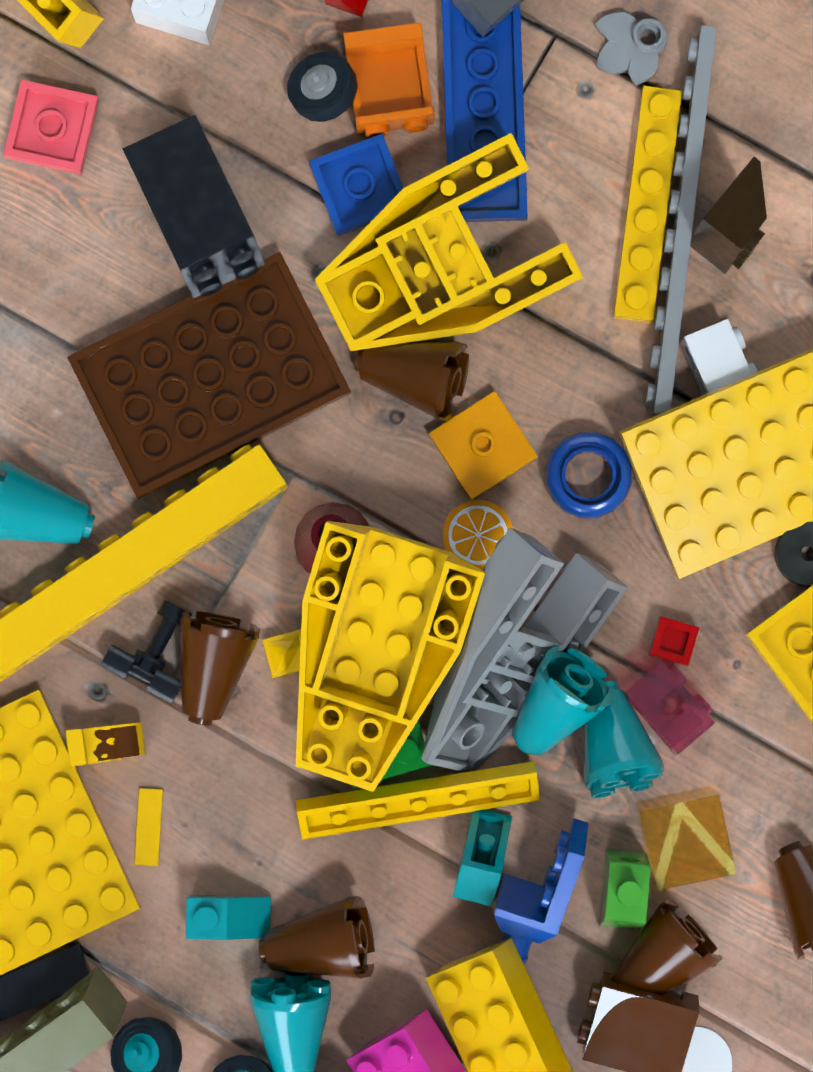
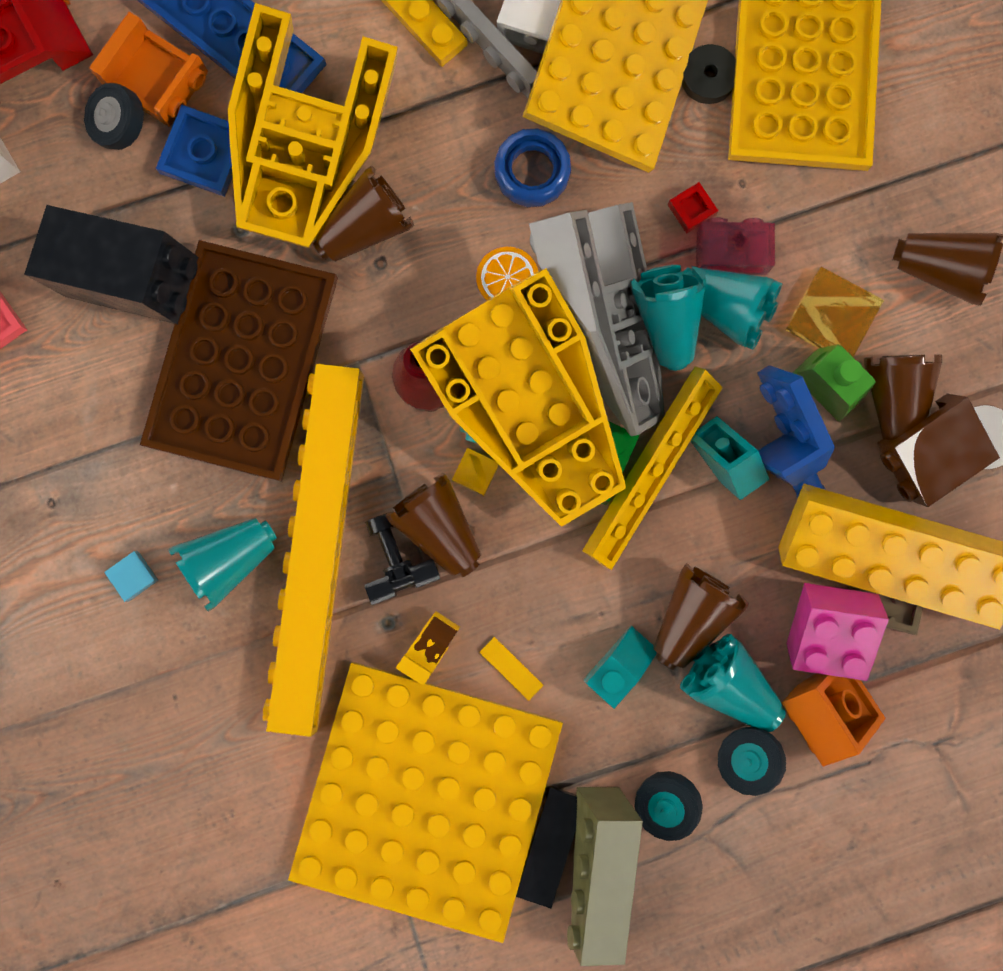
camera: 45 degrees left, 0 degrees up
(483, 445) = (451, 221): light orange plate -> none

